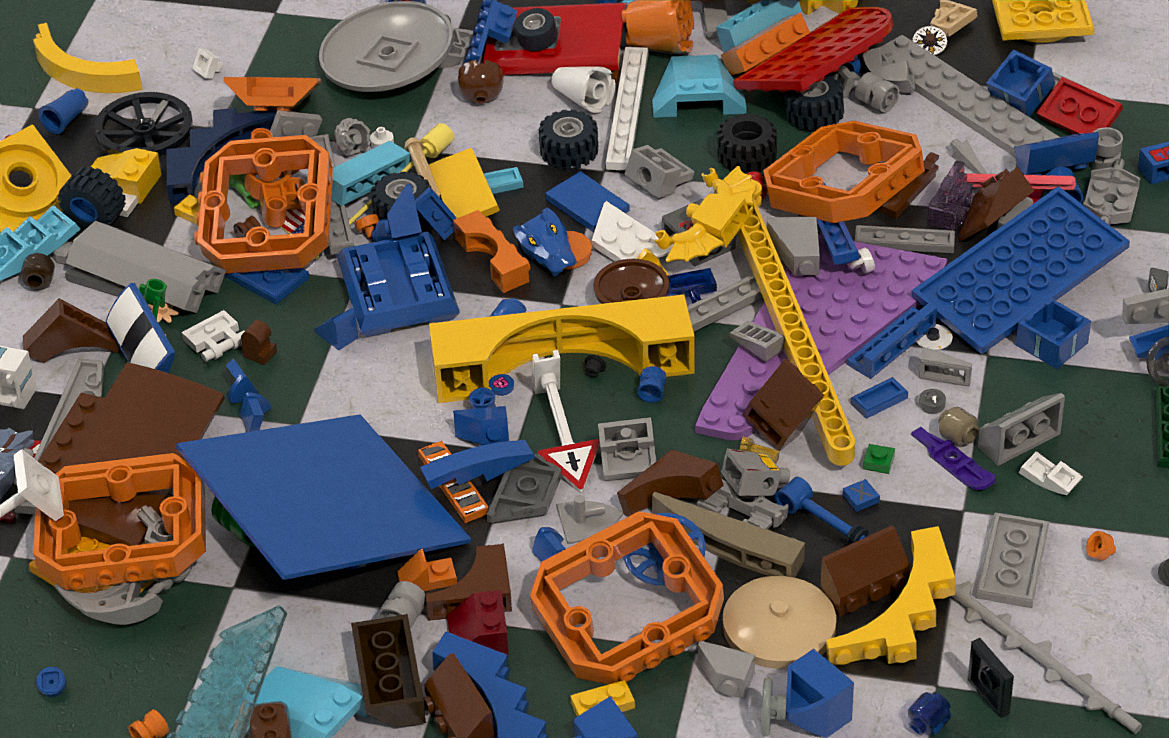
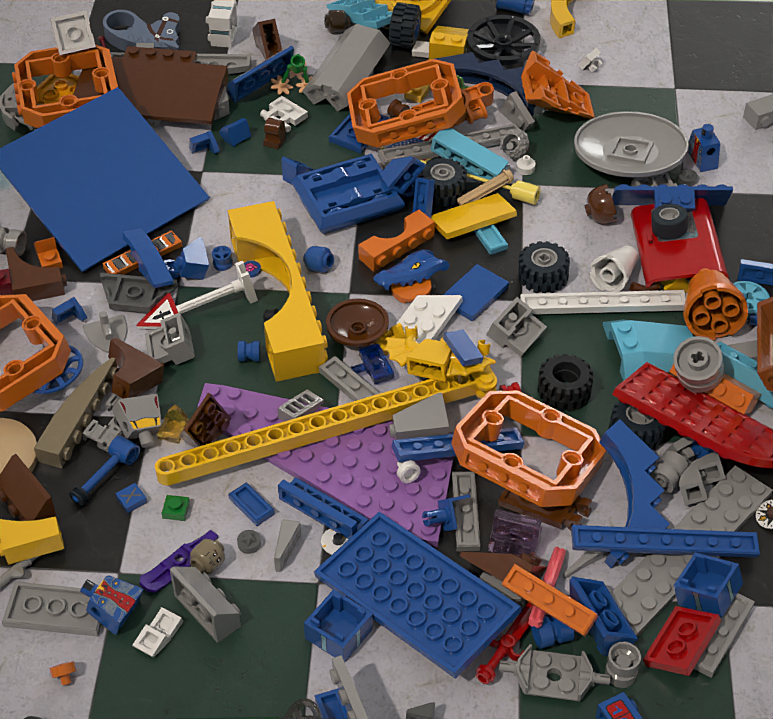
camera: 80 degrees right, 5 degrees up
(720, 182) = (463, 347): none -> tile
(765, 31) = (699, 364): none -> light grey wheel
(909, 106) = (643, 493): none -> blue arch
(915, 240) = (444, 514): none -> blue bracket
(971, 100) = (664, 541): none -> blue tile
(1020, 499) = (111, 601): none -> torso
(1055, 163) = (550, 600): none -> orange tile

